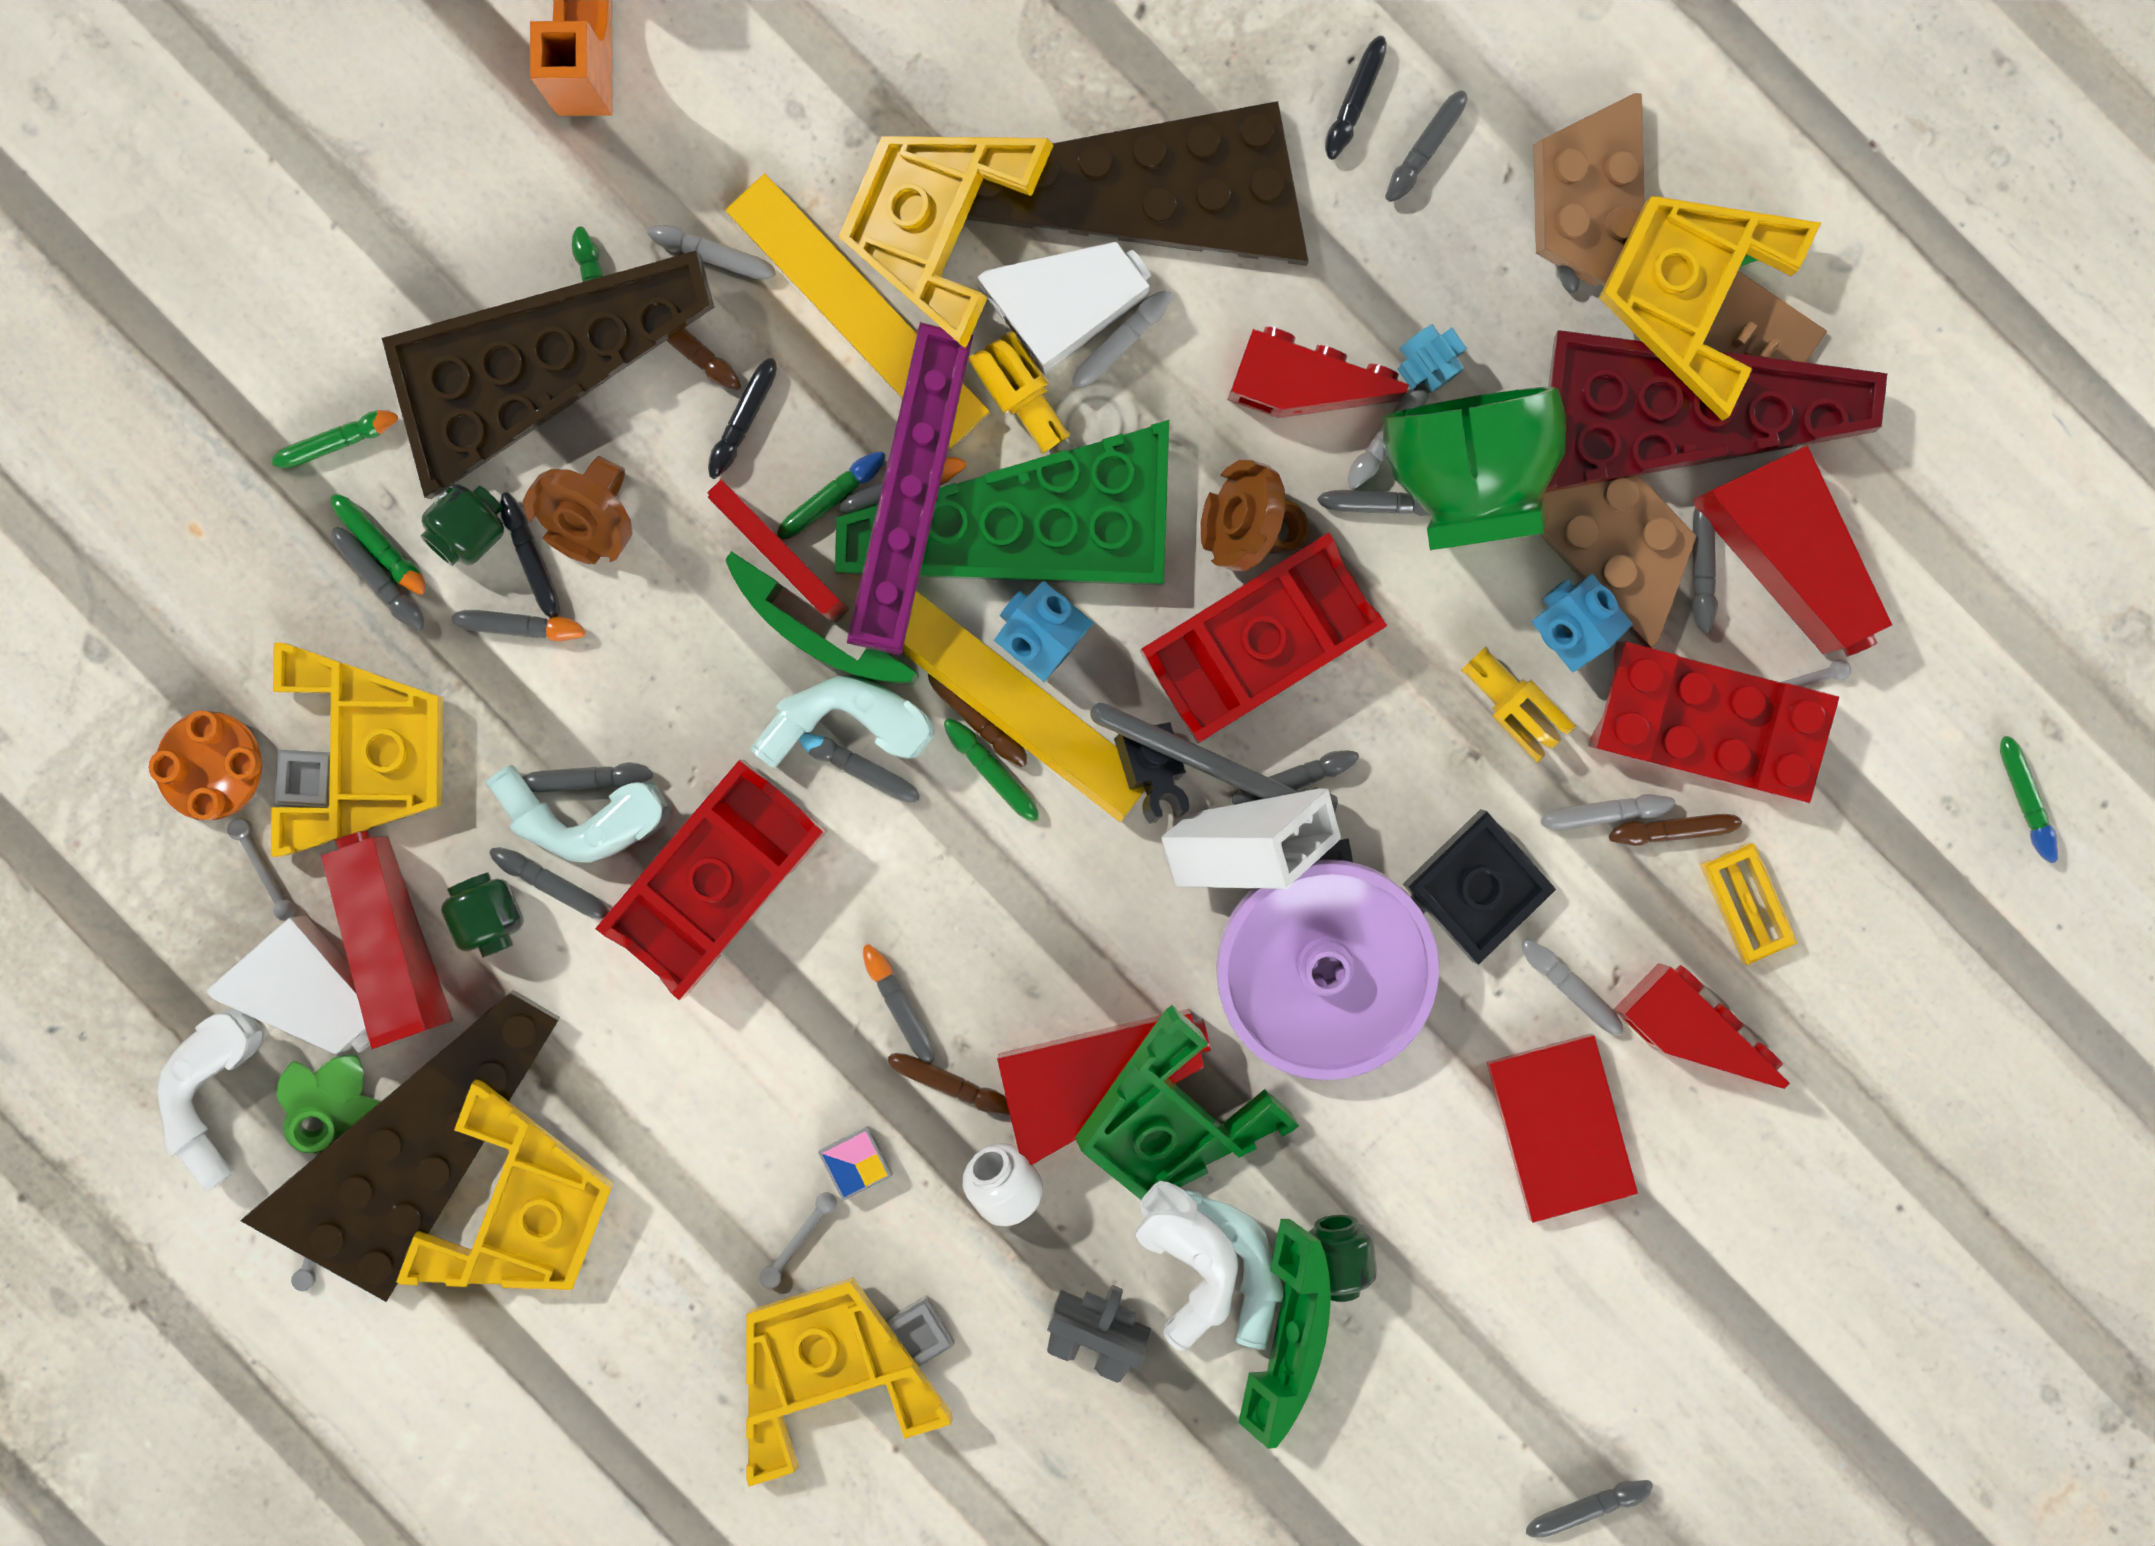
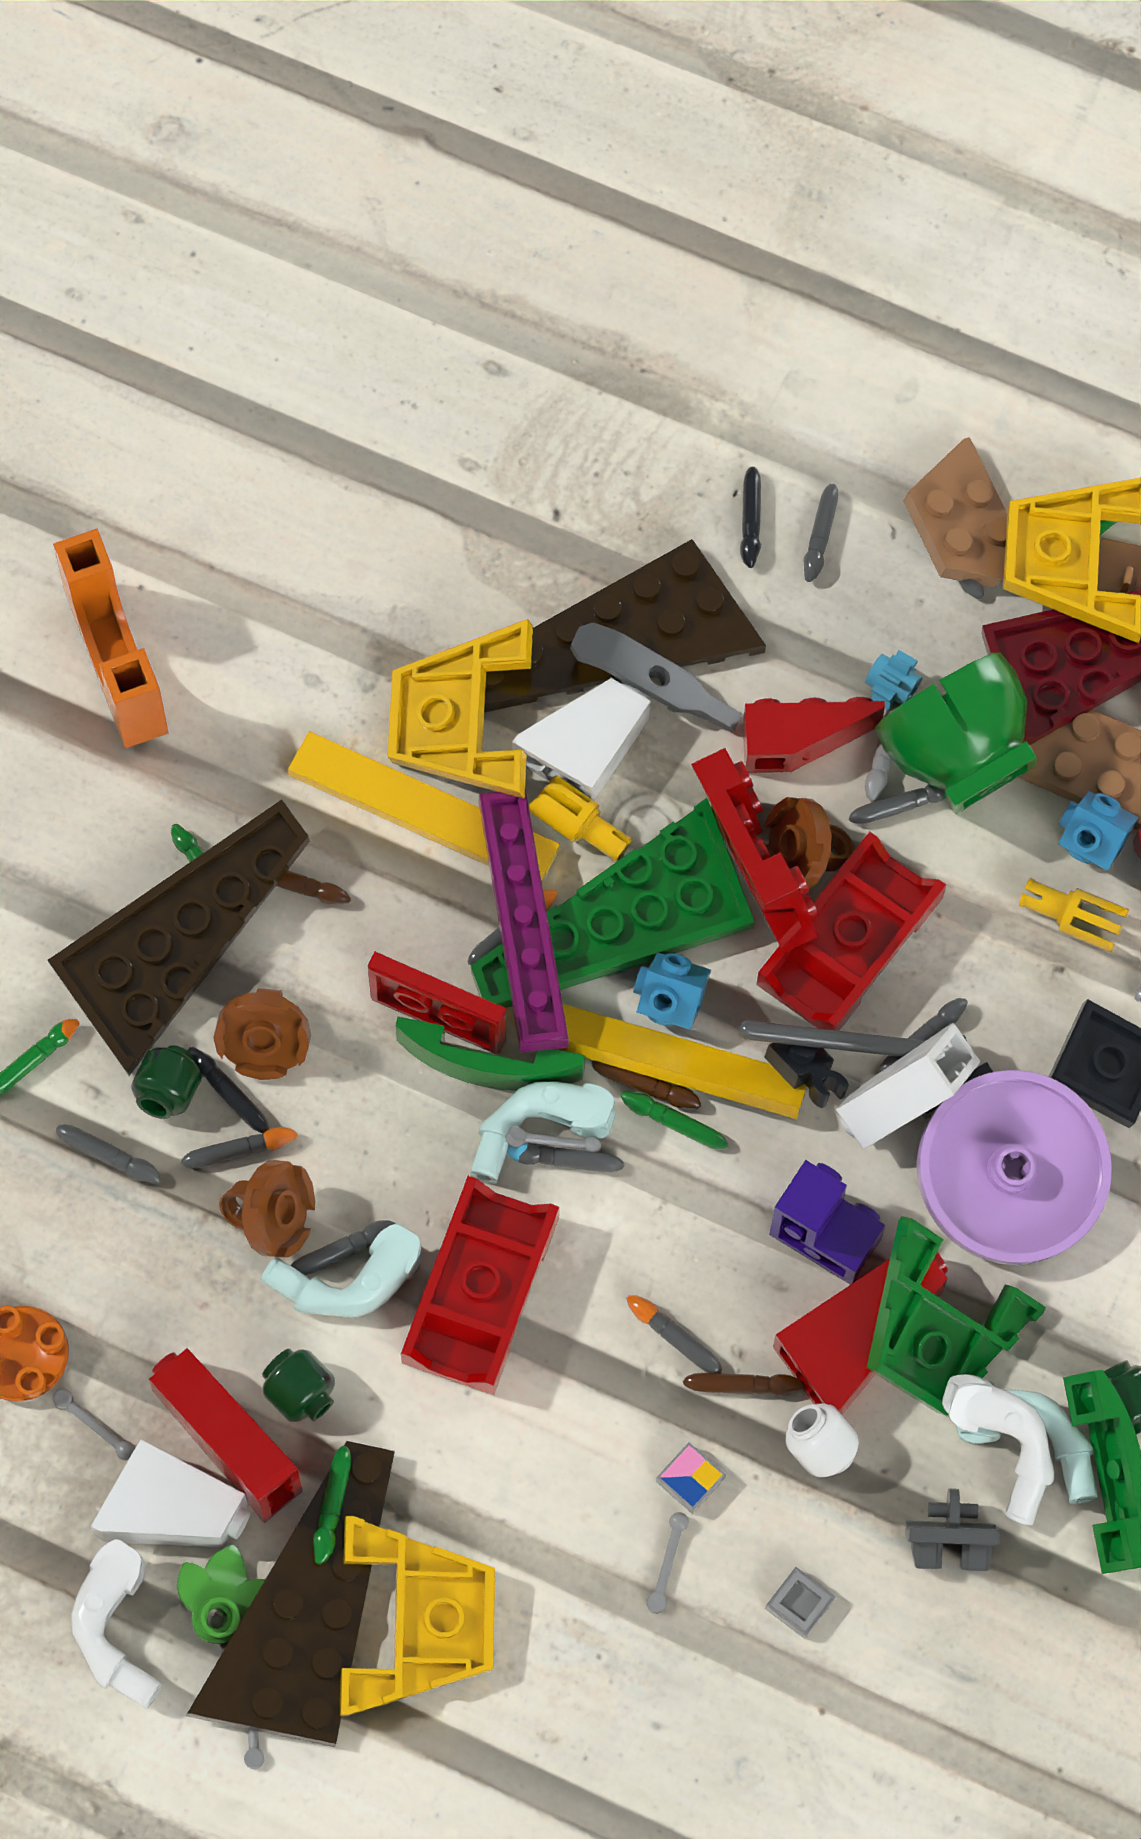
camera: 25 degrees left, 20 degrees down
(302, 778) = (105, 1335): light grey tile -> none
(381, 750) = (163, 1286): yellow wing -> none
(402, 570) = (99, 1126): green piece -> none
(447, 1090) = (325, 1538): none -> green piece
(520, 715) = (272, 1208): none -> dark orange tile
(548, 882) = (341, 1344): dark grey piece -> none
(677, 240) = (298, 806): light grey piece -> none
(725, 450) = (357, 952): black piece -> none
(810, 733) = (517, 1136): none -> light grey hinge
(820, 1351) = (724, 1642): yellow wing -> none
(830, 495) = (464, 944): green piece -> none
(1102, 956) = (825, 1226): none -> dark purple brick
(1146, 231) = (634, 665): none -> dark grey piece
(1148, 313) = (655, 729): light grey piece -> none
(1186, 457) = (776, 888): none -> red piece

